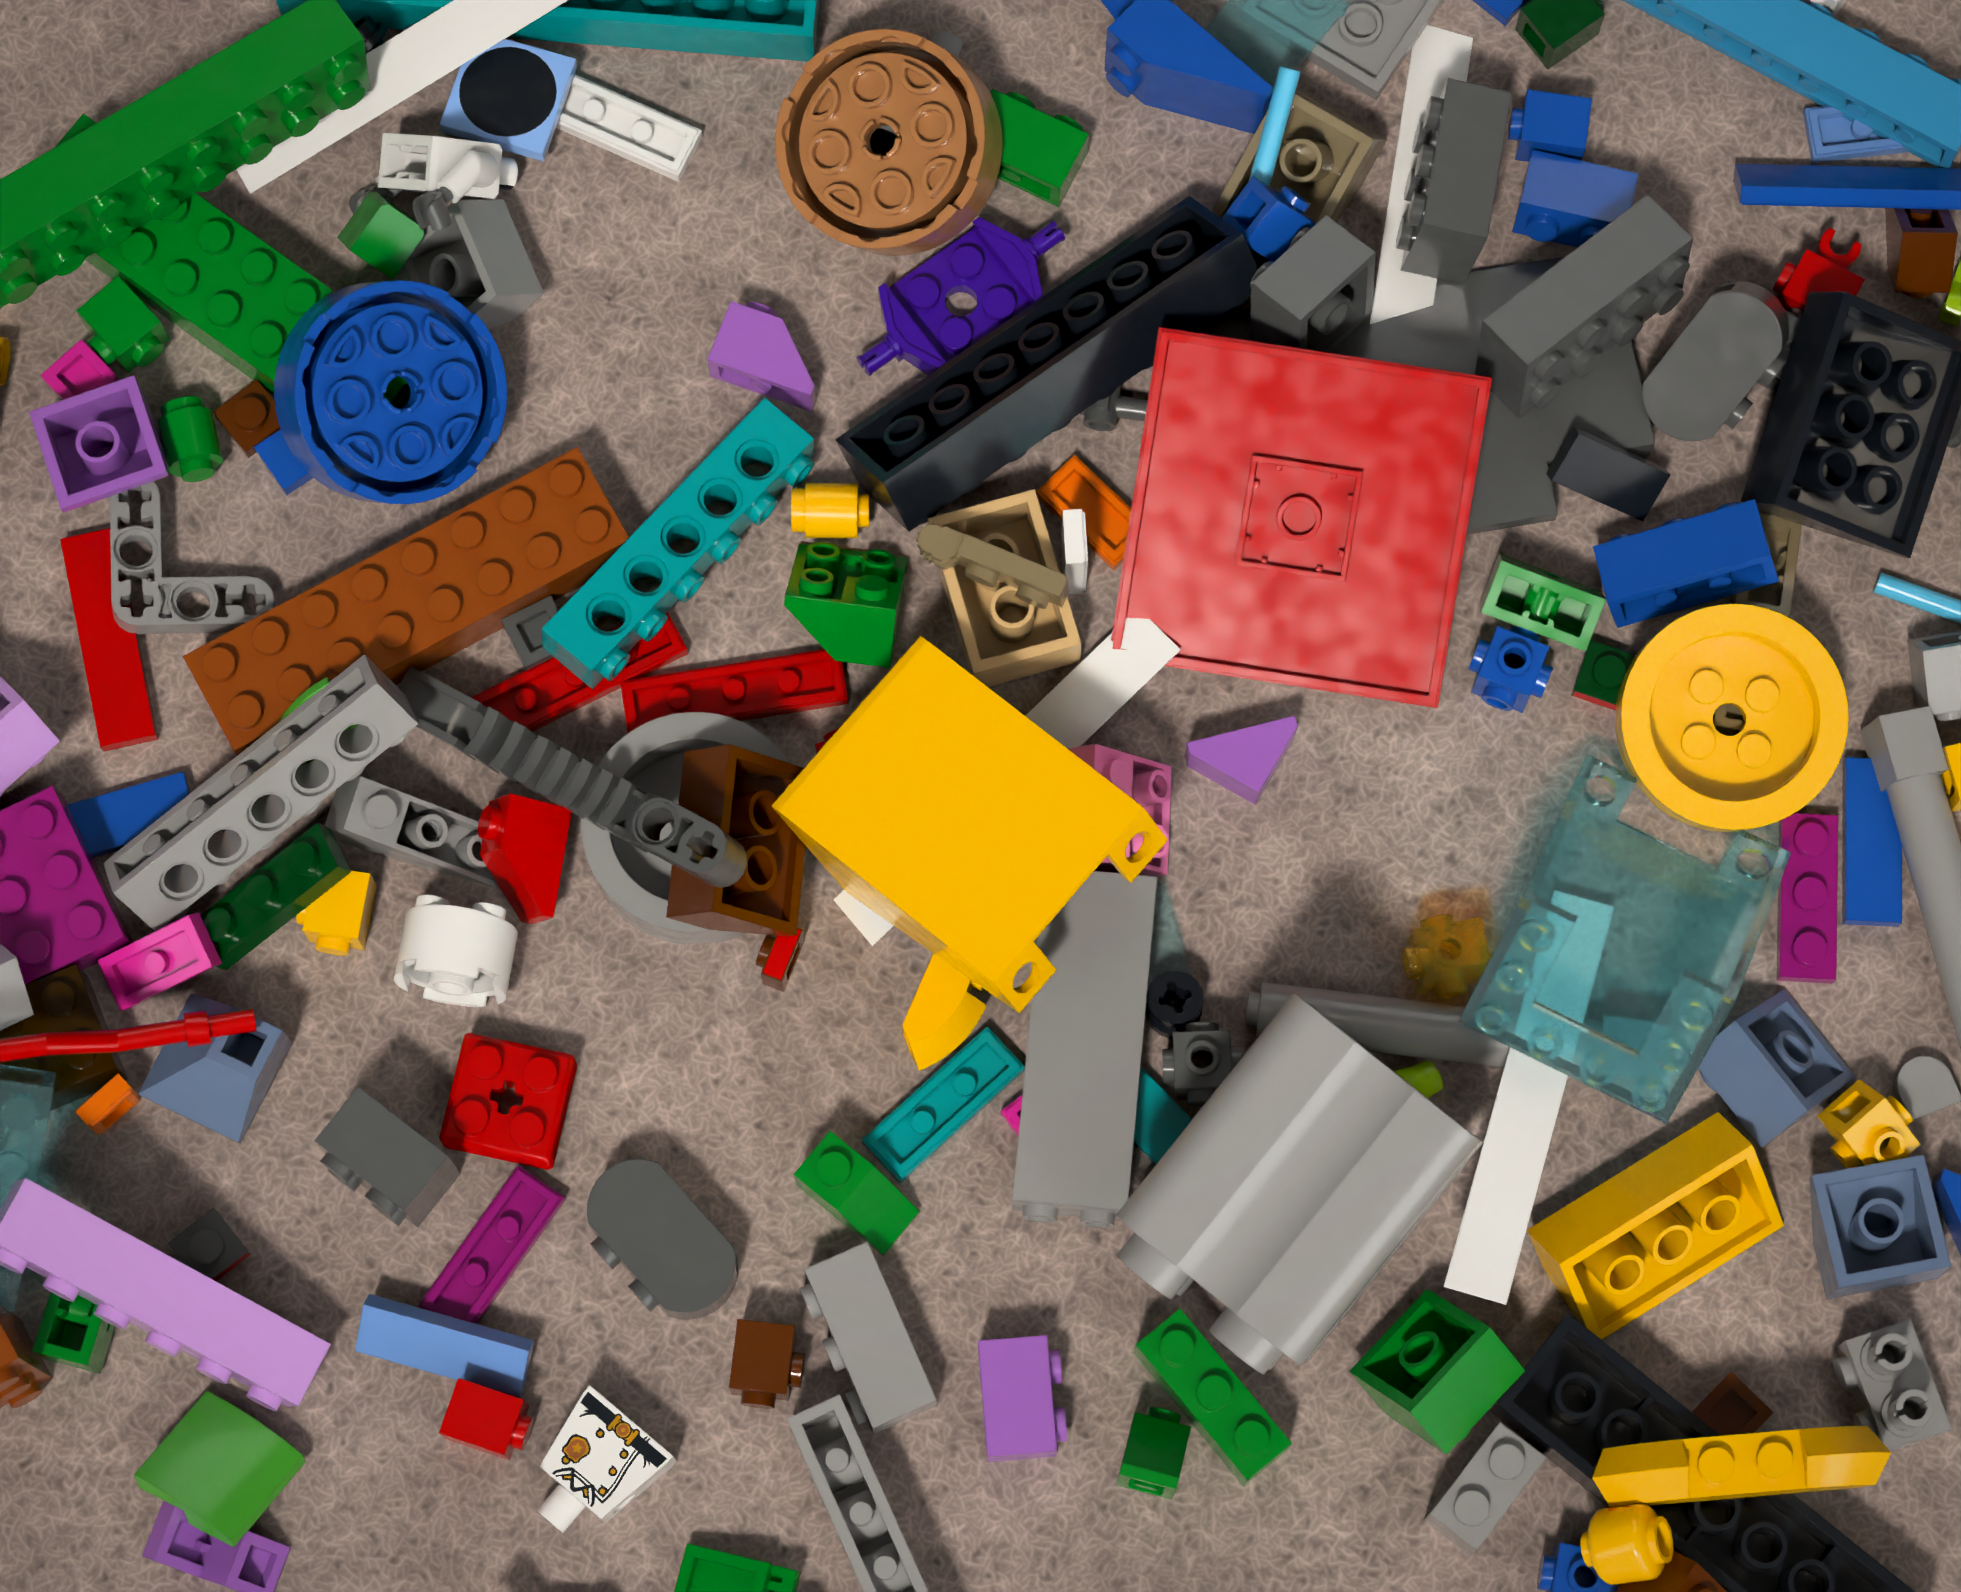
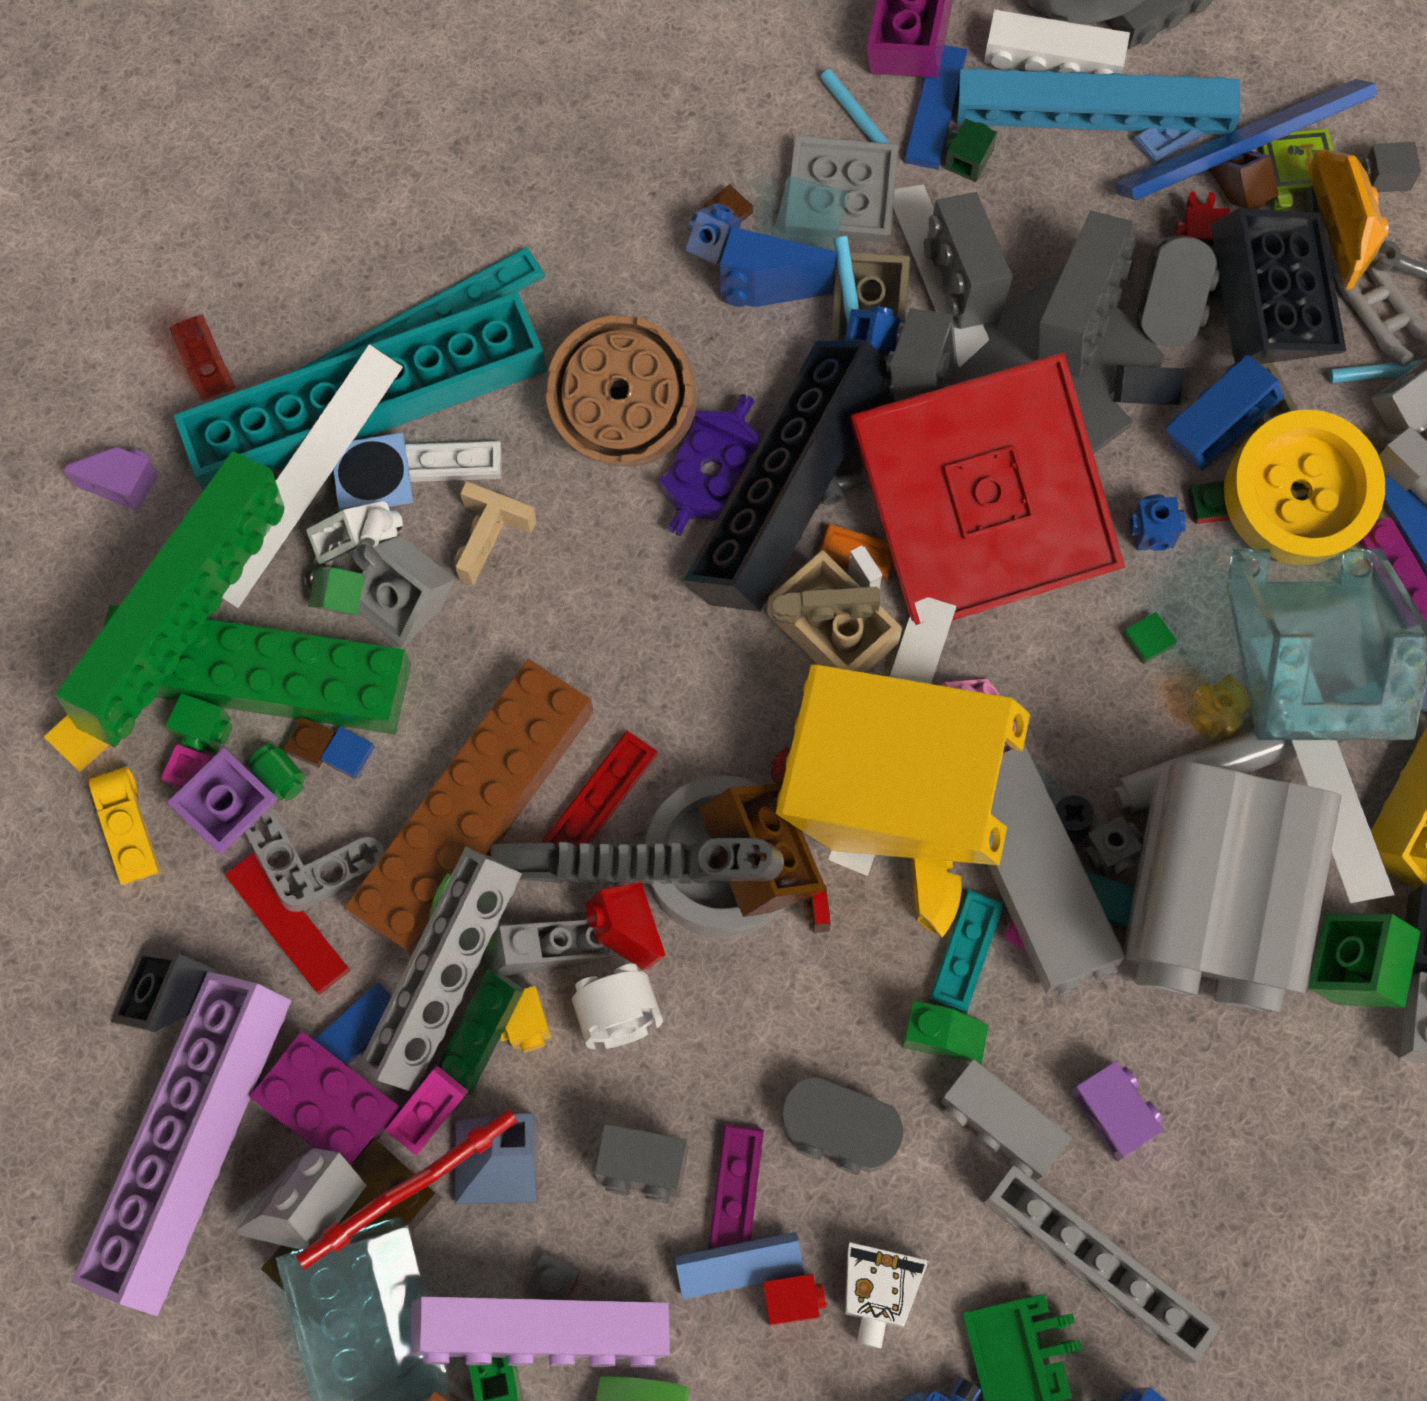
camera: 25 degrees left, 5 degrees down
(108, 1105) = (440, 1220): orange tile -> none
(336, 379) = (357, 674): blue brick -> none
(526, 633) = (559, 785): dark grey plate -> none
(528, 1131) = (719, 1099): red brick -> none
(620, 243) = (485, 528): none -> tan bracket
(739, 689) = (702, 759): red tile -> none
(760, 356) = (610, 554): medium lavender slope -> none
(761, 437) = (637, 601): teal brick -> none
(765, 1363) = (949, 1170): reddish brown brick -> none
(829, 510) = (700, 625): yellow brick -> none
(848, 600) = (743, 672): green slope -> none
(1038, 150) = (712, 357): green brick -> none
(1154, 1453) = (1222, 1101): green slope -> none
(1212, 1397) = (1235, 1048): green brick -> none
(1244, 757) = (1031, 652): medium lavender slope -> none
(1417, 818) = (1150, 637): none -> green tile
(1542, 602) = (1154, 475): brick -> none
(1550, 125) = (1006, 207): blue brick -> none
(1570, 198) = (1038, 243): blue brick -> none

